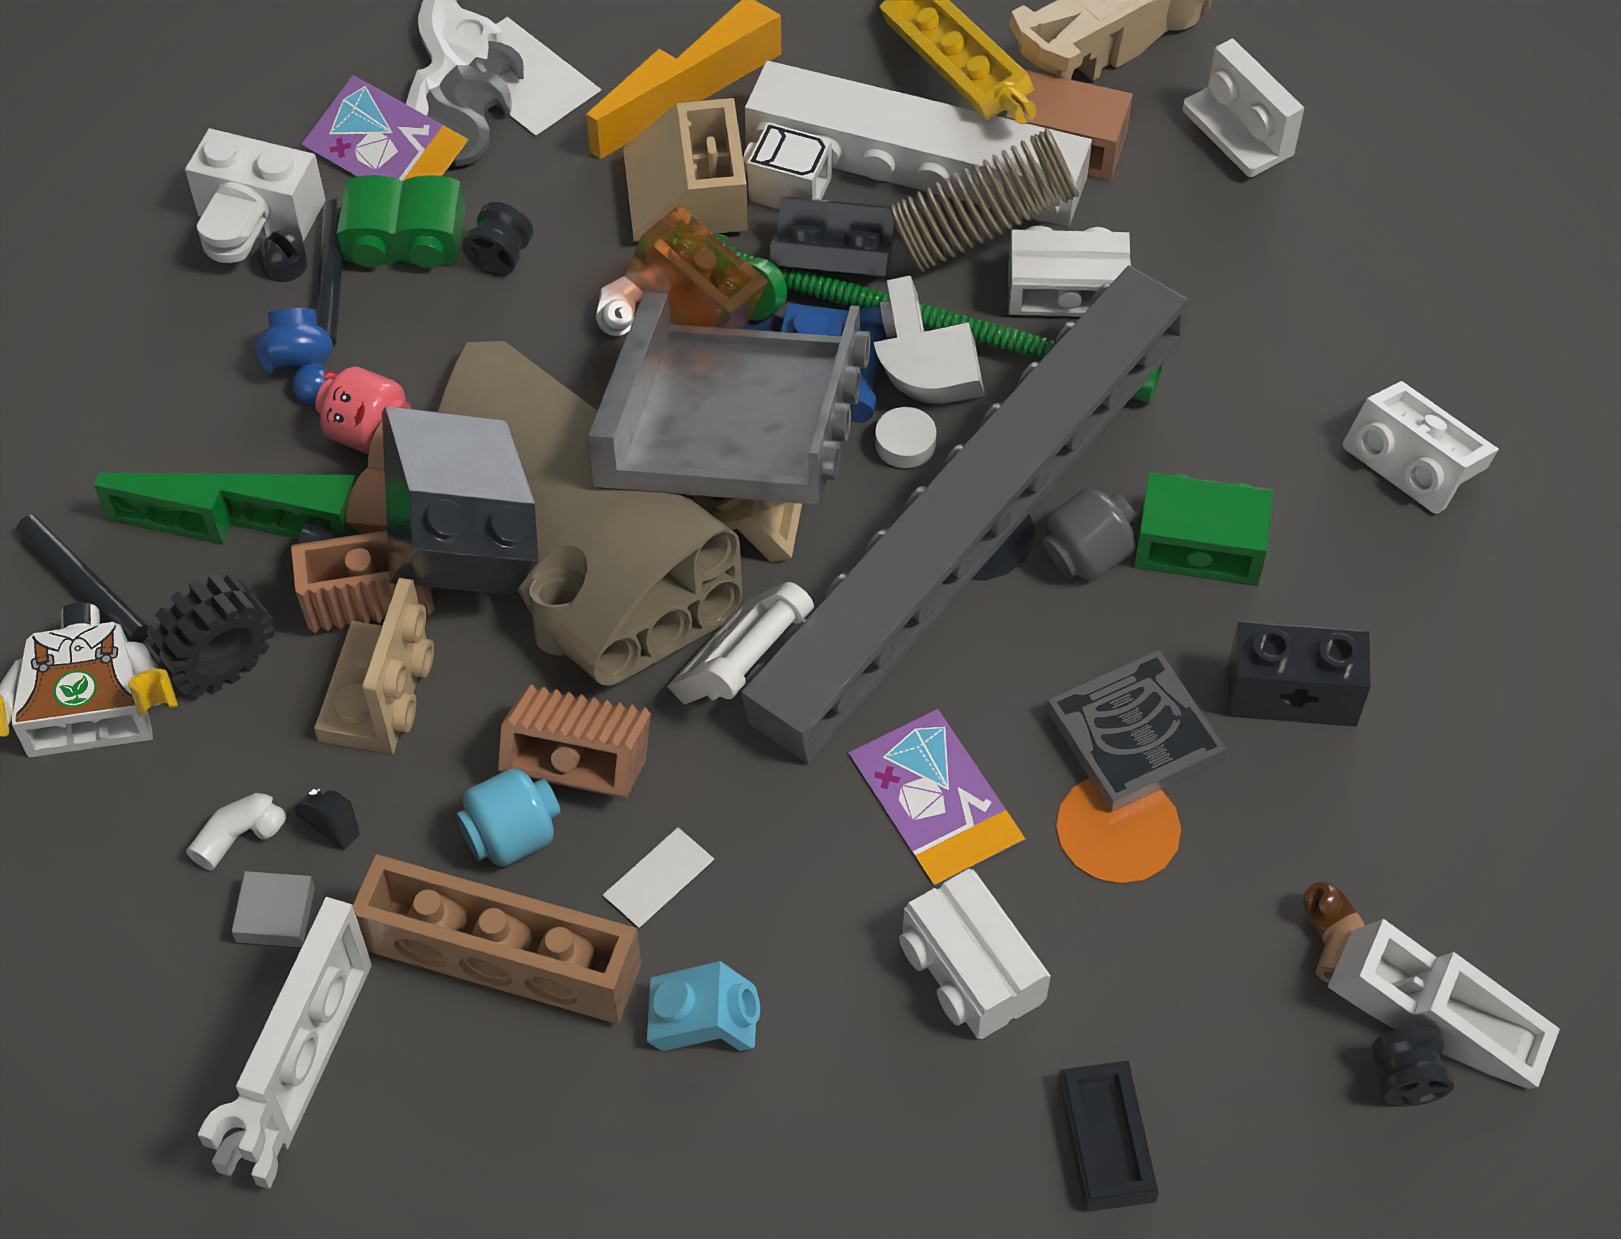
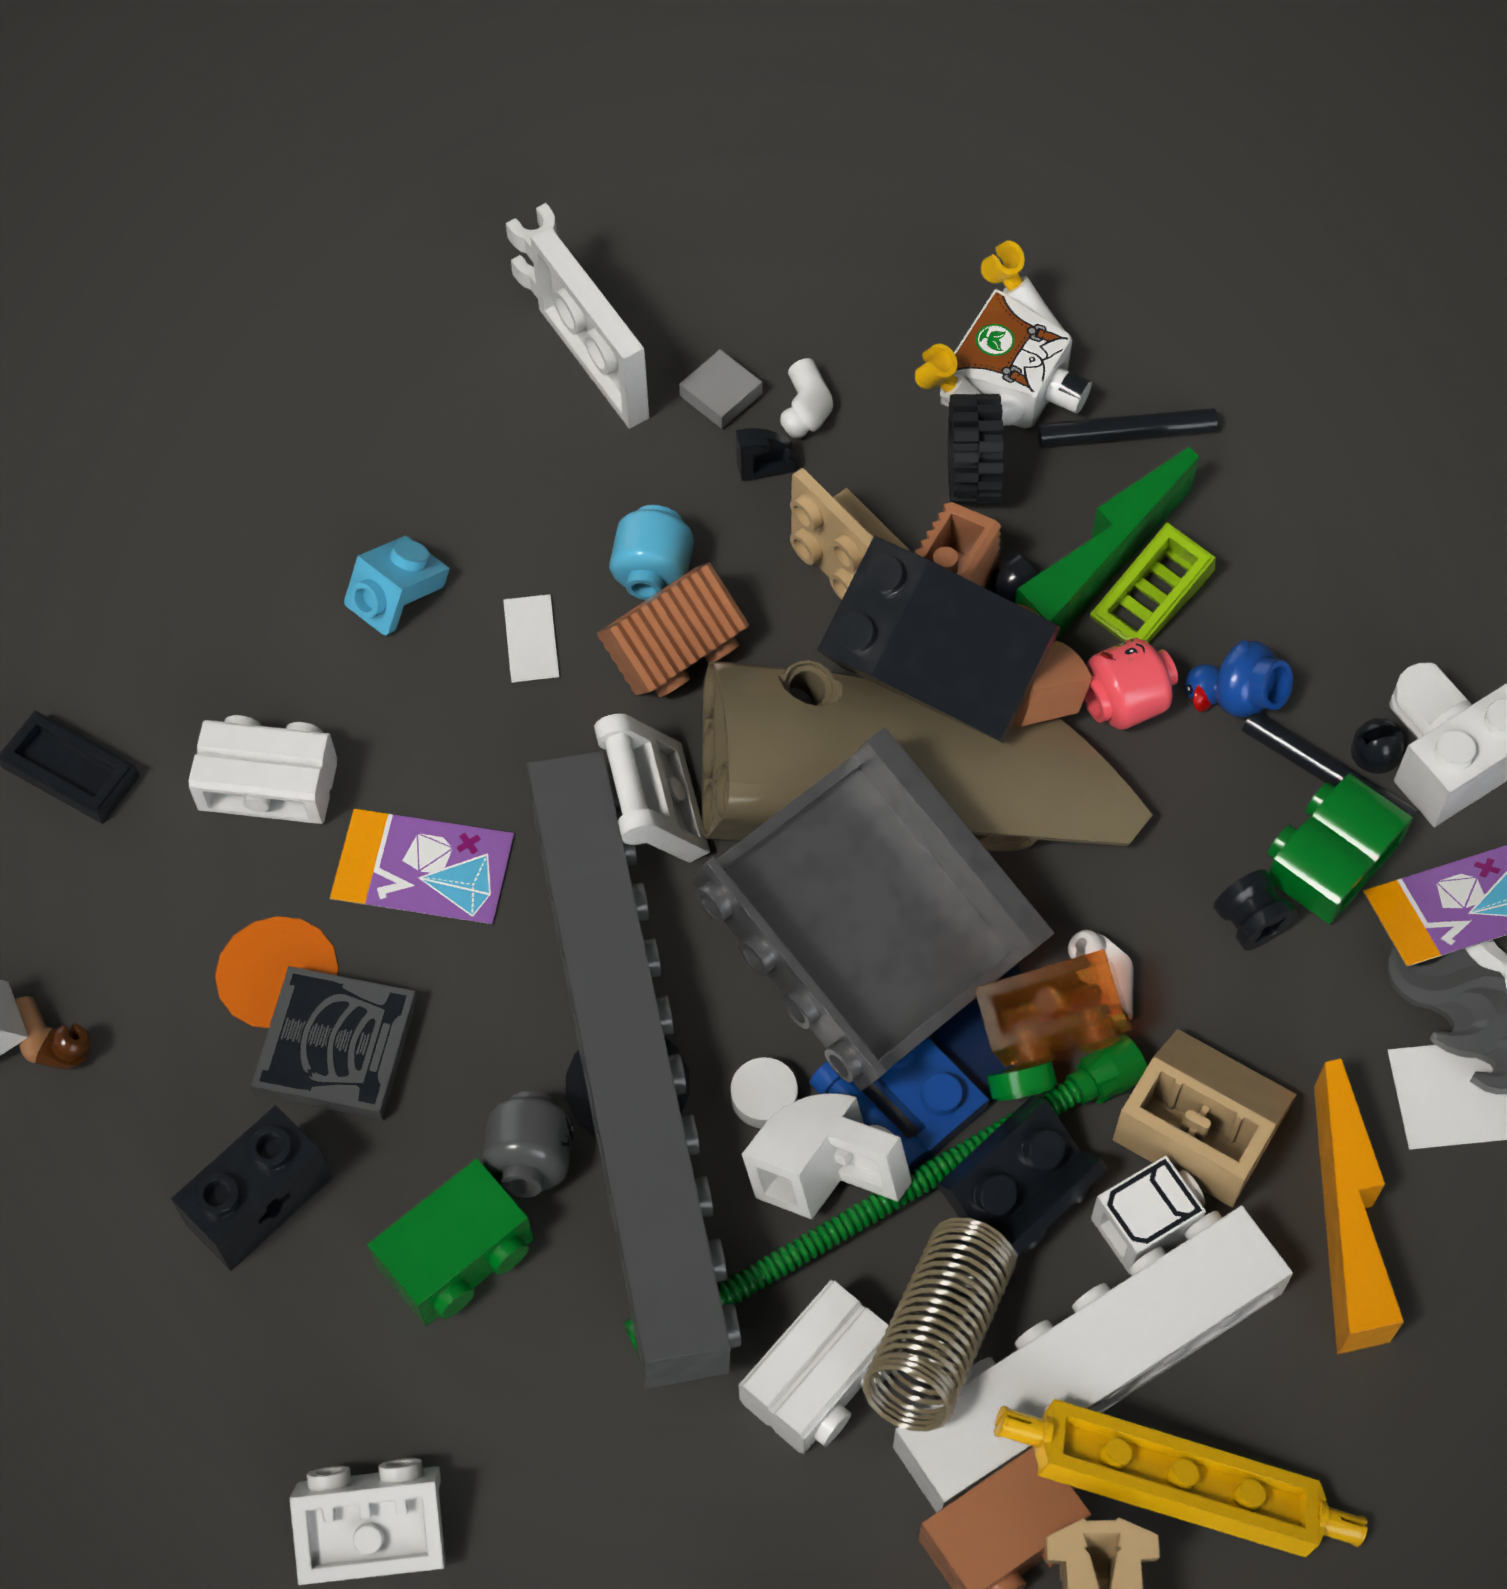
camera: 130 degrees right, 5 degrees up
(230, 442) = (1182, 551): none -> lime slope
(498, 938) = (553, 477): medium nougat brick -> none

